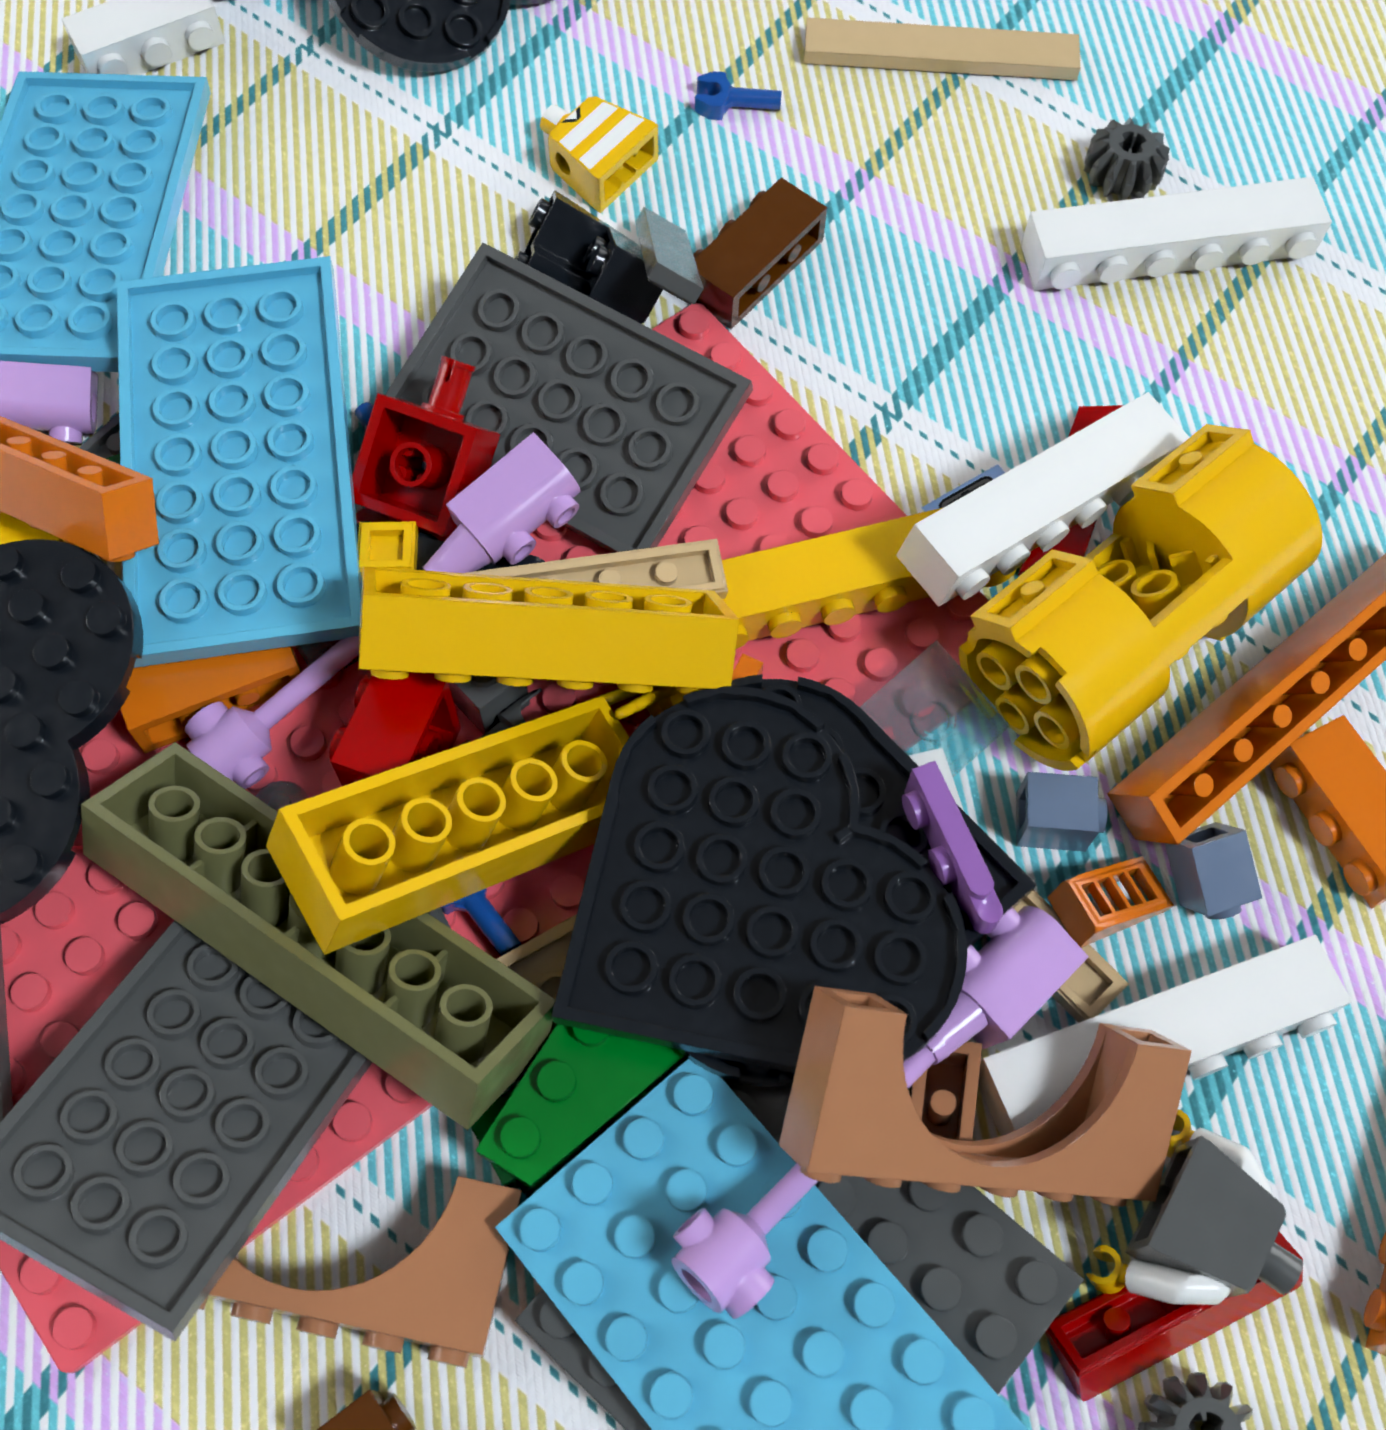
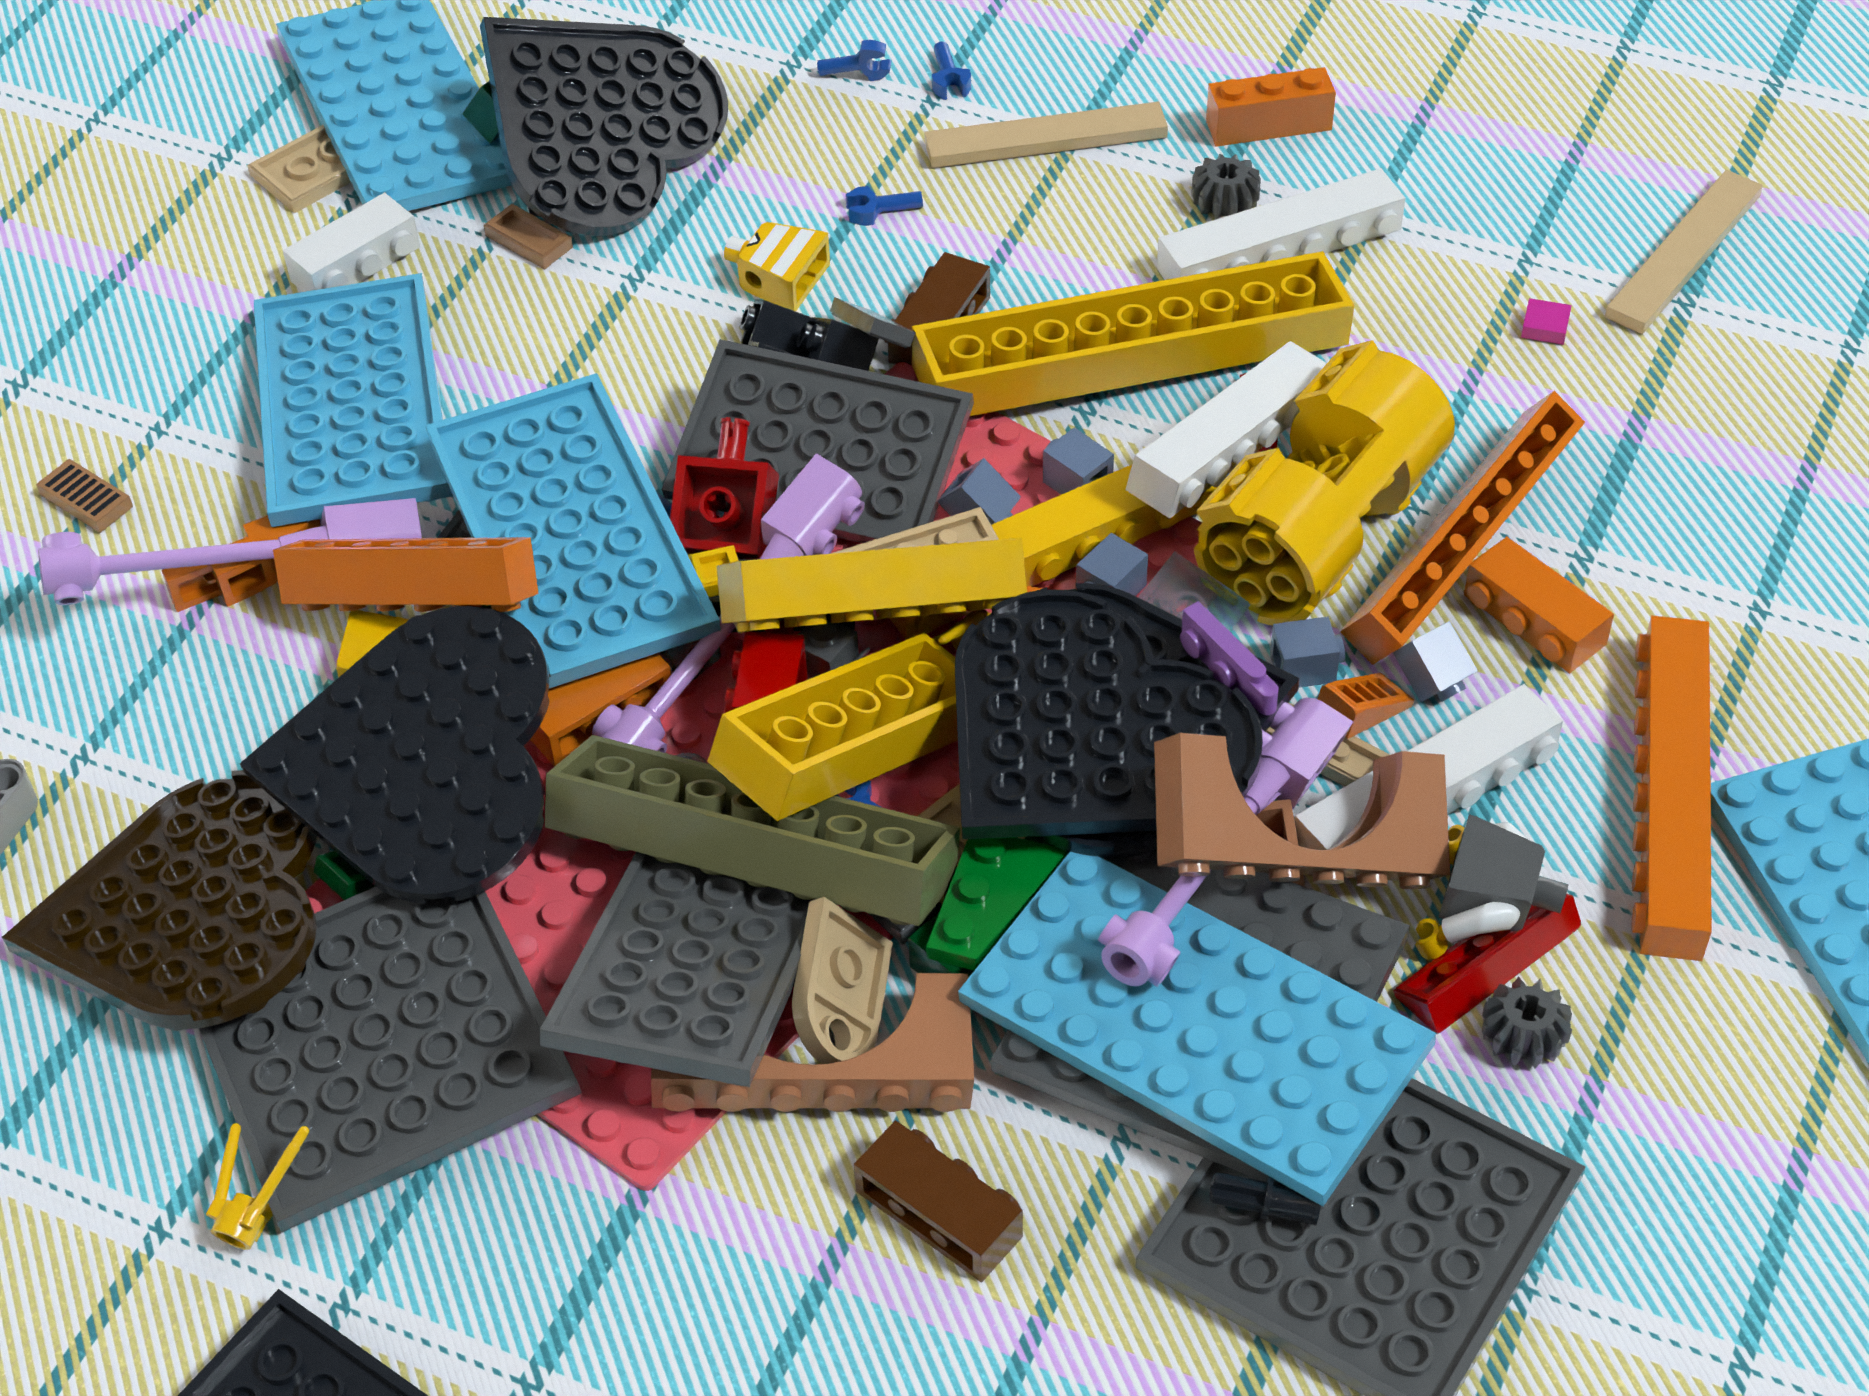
camera: 10 degrees left, 15 degrees down
(340, 56) = (528, 236): none -> medium nougat tile
(360, 1168) = (839, 983): none -> tan tile
(727, 512) = (980, 487): none -> sand blue brick
(853, 492) = (1075, 461): none -> sand blue brick
(853, 653) = (1114, 565): none -> sand blue brick
(970, 333) = (1135, 333): none -> yellow brick
(1204, 67) = (1270, 106): none -> orange brick

